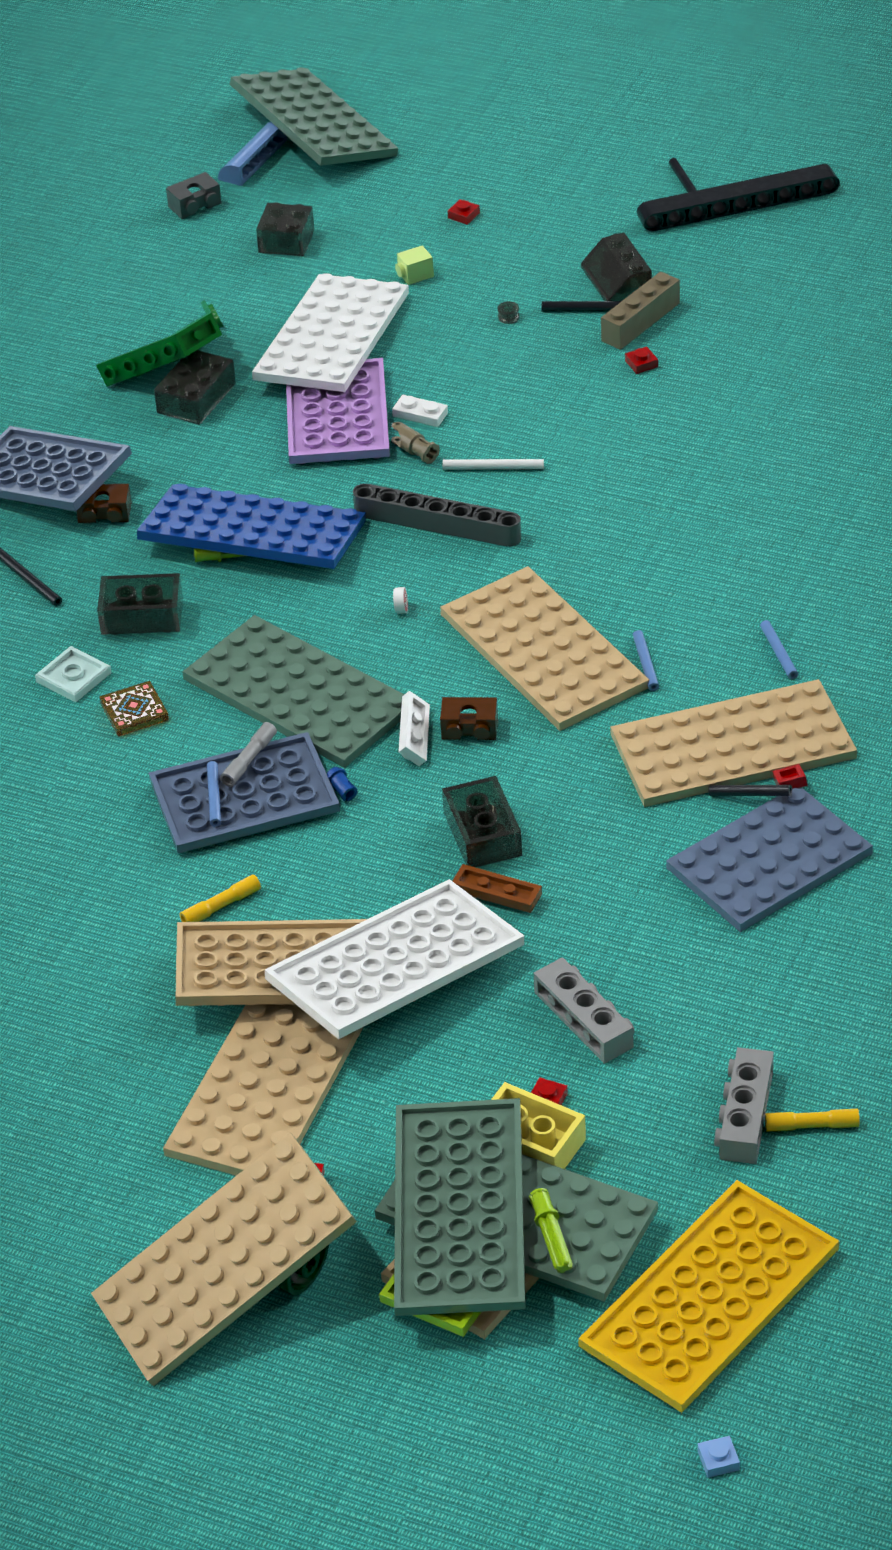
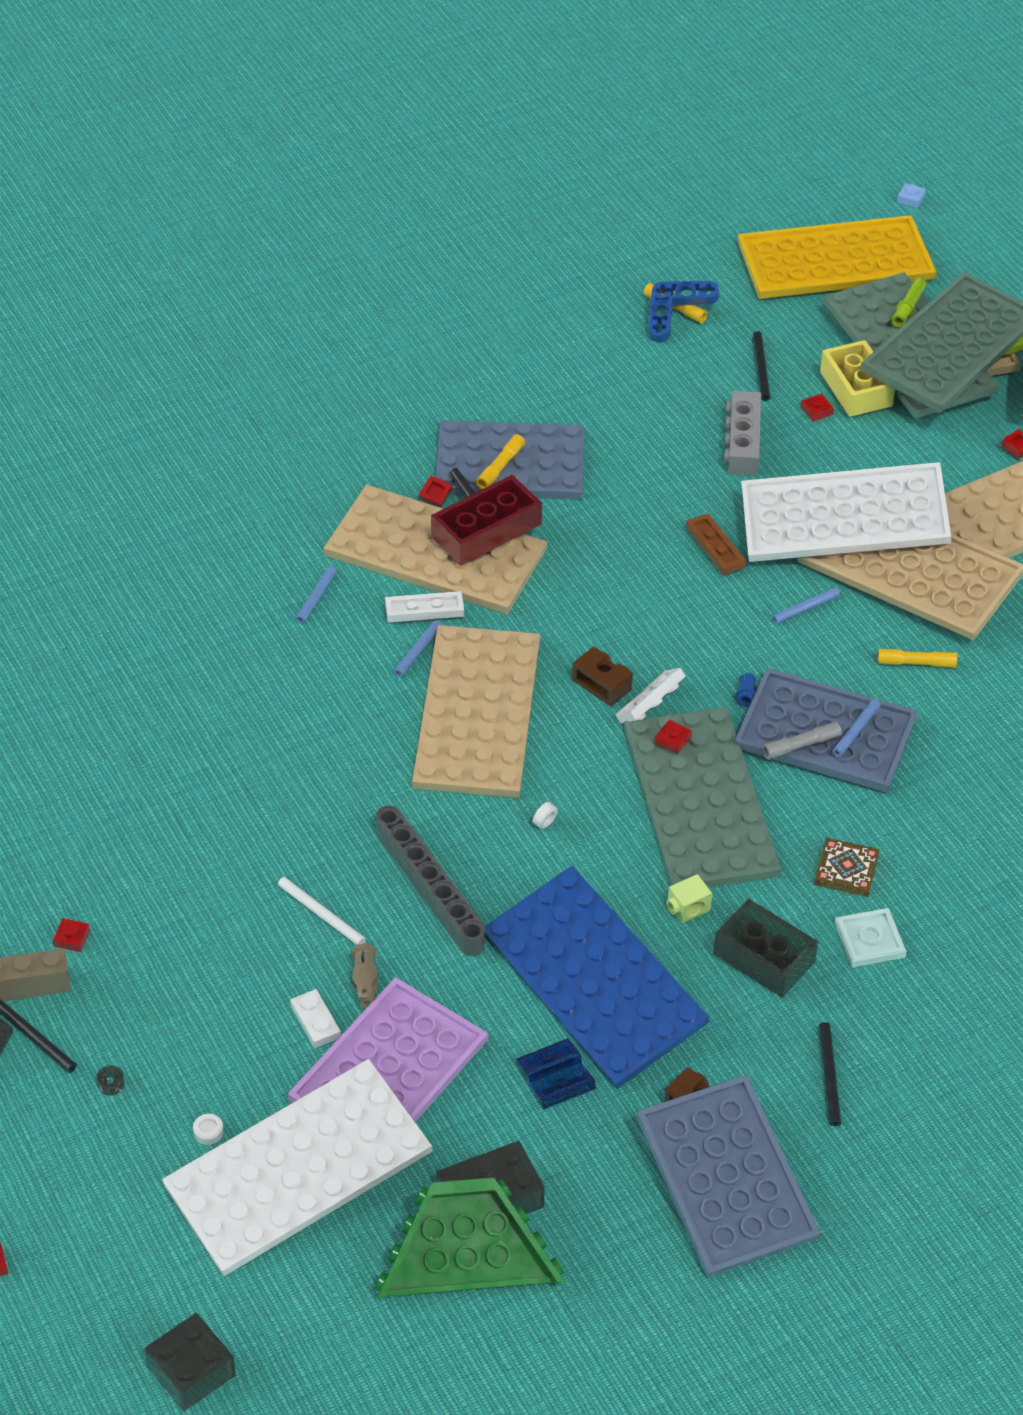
camera: 145 degrees left, 5 degrees up
(221, 471) = (555, 1073): none -> clear blue slope
(231, 610) = (689, 898): none -> yellowish green brick
(357, 698) = (673, 736): none -> red plate
(364, 889) = (805, 605): none -> medium blue piece
(414, 265) = (125, 1204): yellowish green brick -> none
(416, 327) = (208, 1129): none -> white tile
(482, 822) = (682, 582): clear smoke brick -> none
(650, 1108) = (761, 366): none -> black piece
(677, 686) = (424, 606): none -> white plate
(698, 750) = (486, 519): none -> dark red brick
(745, 1106) = (706, 326): light grey brick -> none
(757, 813) = (508, 452): none -> yellow piece
(818, 1100) = (668, 300): none -> blue beam

